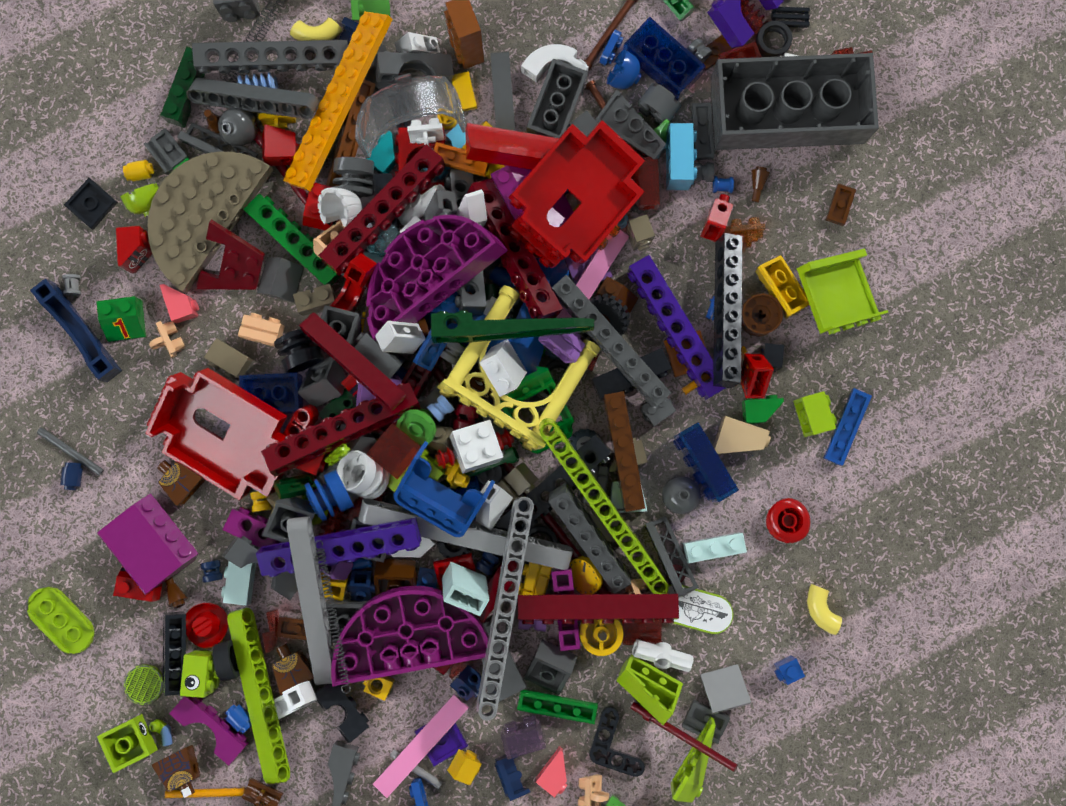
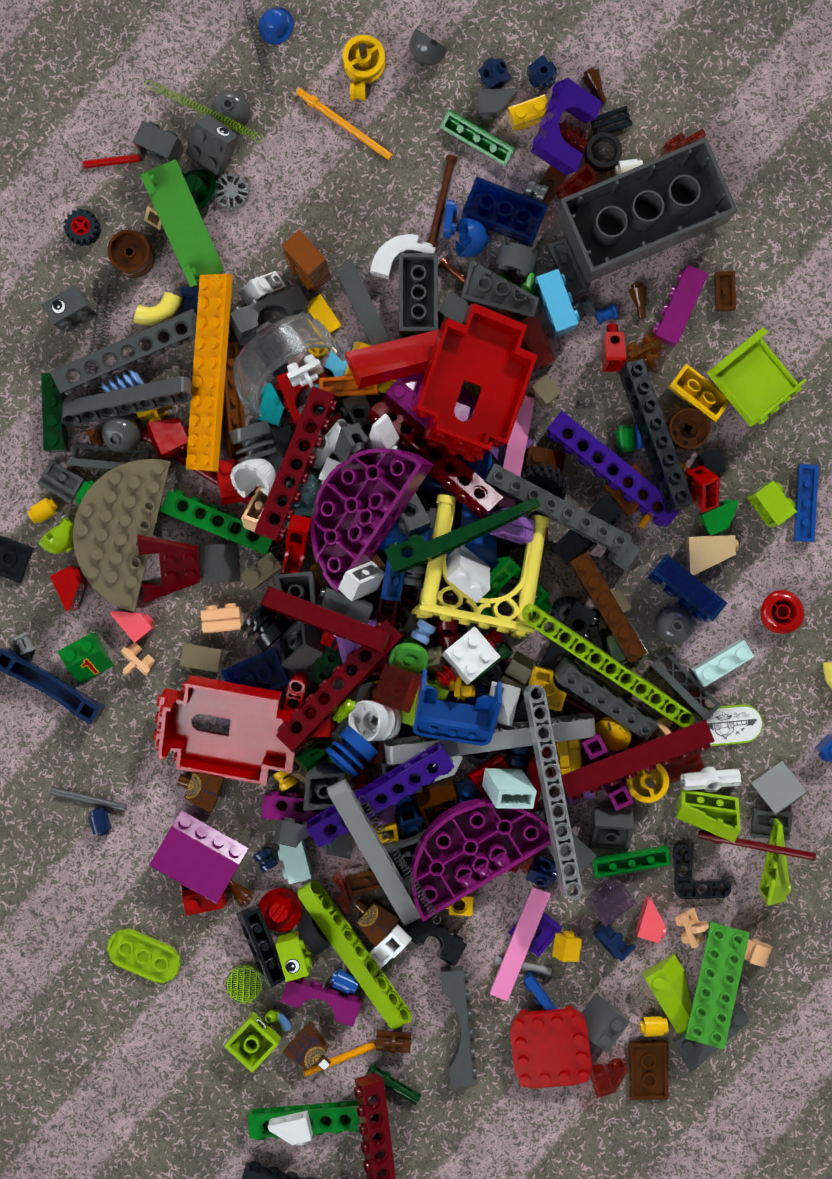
camera: 25 degrees left, 5 degrees up
(541, 516) = (544, 677): none -> yellow tile
(699, 304) = (625, 438): none -> green brick
(795, 201) = (680, 305): none -> magenta brick

